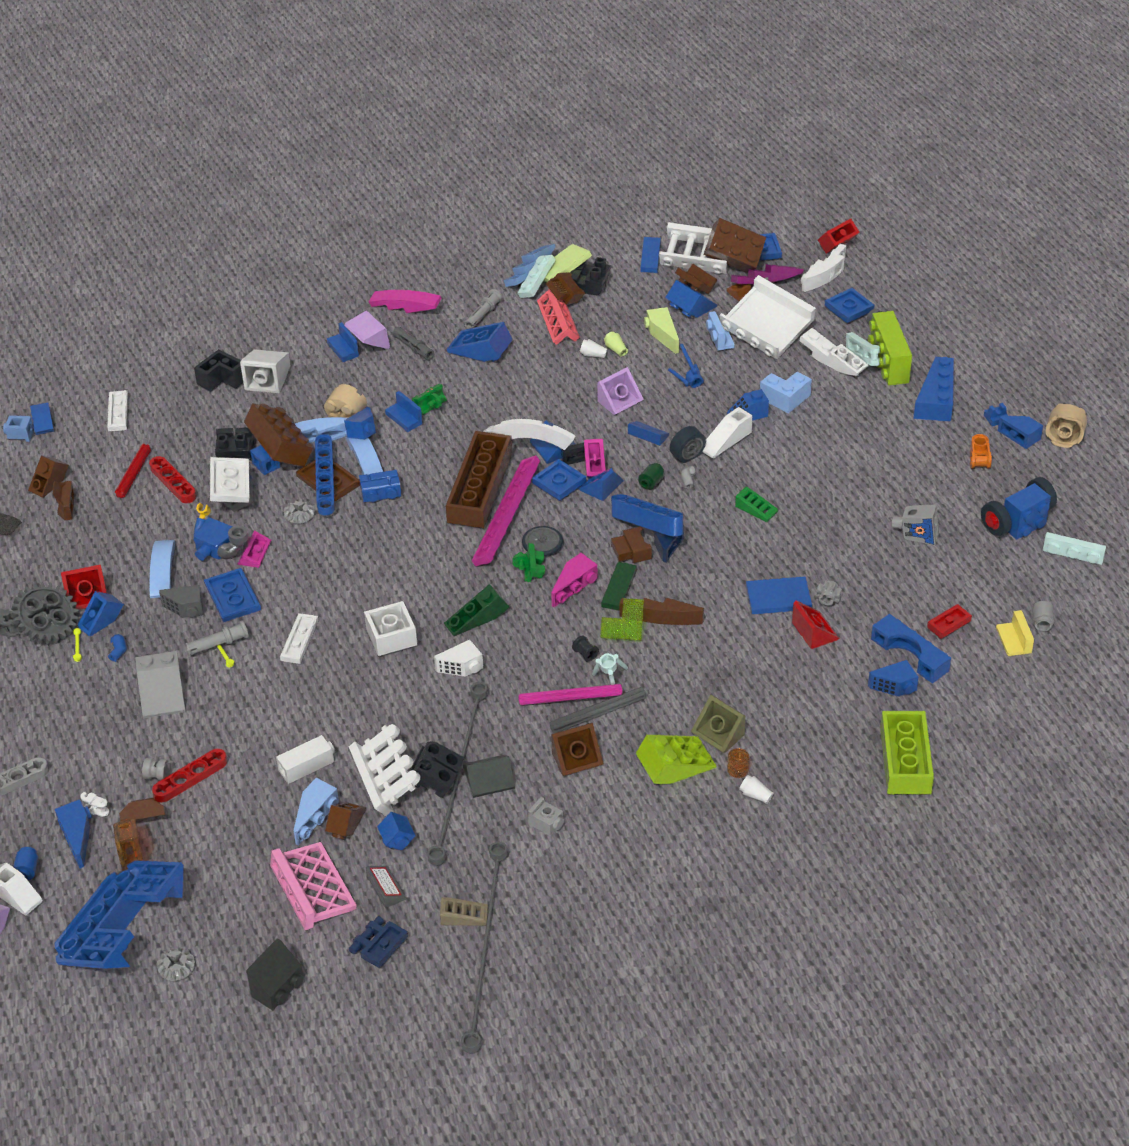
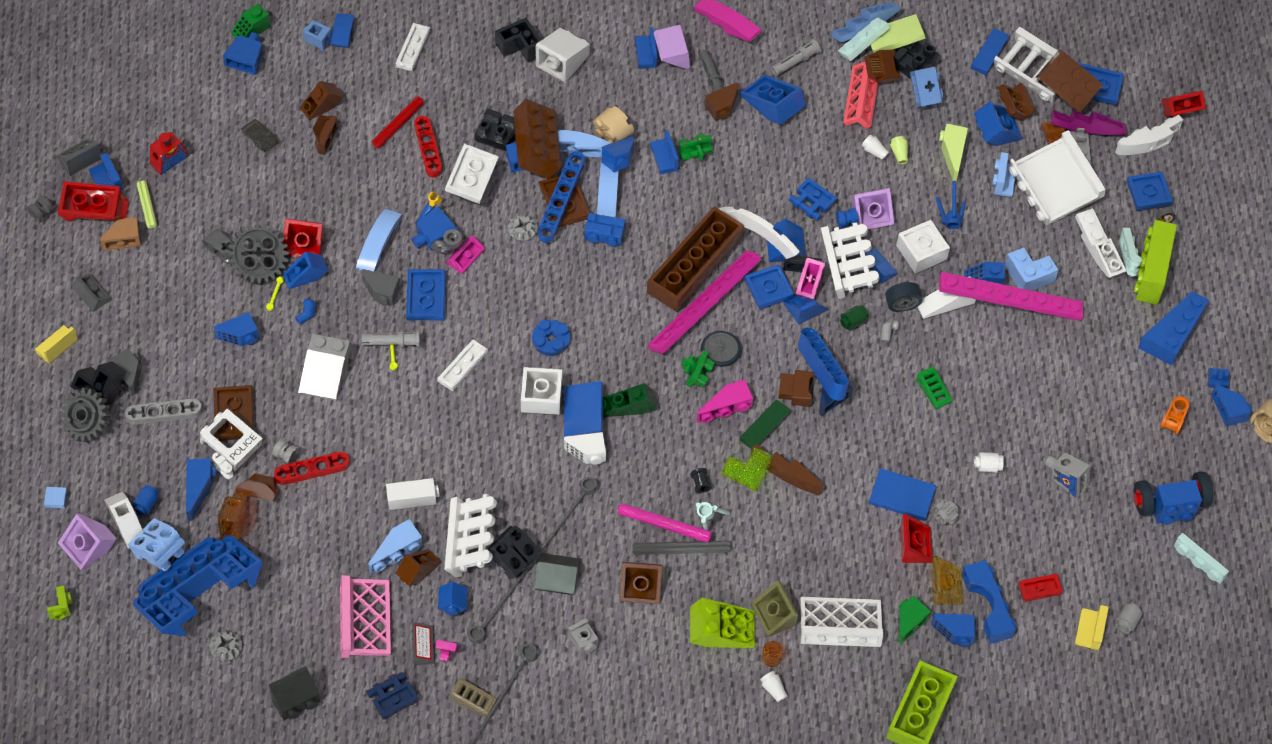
camera: 20 degrees right, 15 degrees up
(54, 685) = (238, 330): none -> blue slope
(58, 896) = (157, 544): none -> light blue hips
(83, 757) = (240, 402): none -> reddish brown tile
(108, 783) = (241, 449): none -> white window
(366, 581) = (548, 328): none -> blue plate
(412, 877) = (446, 649): none -> dark pink tile
(434, 359) = (721, 102): none -> reddish brown slope
(439, 629) = (583, 409): none -> blue tile
(560, 399) = (815, 195): none -> blue plate
(599, 406) = (846, 218): none -> blue wheel
(612, 290) = (925, 77): none -> medium blue brick
(616, 445) = (843, 251): none -> white fence
(681, 403) = (922, 246): none -> white container
(782, 411) = (1010, 296): none -> dark pink plate
(787, 723) = (841, 634): none -> white fence
(841, 542) = (988, 462): none -> white brick
(848, 686) = (911, 617): none -> green slope
(861, 648) = (946, 582): none -> clear yellow slope

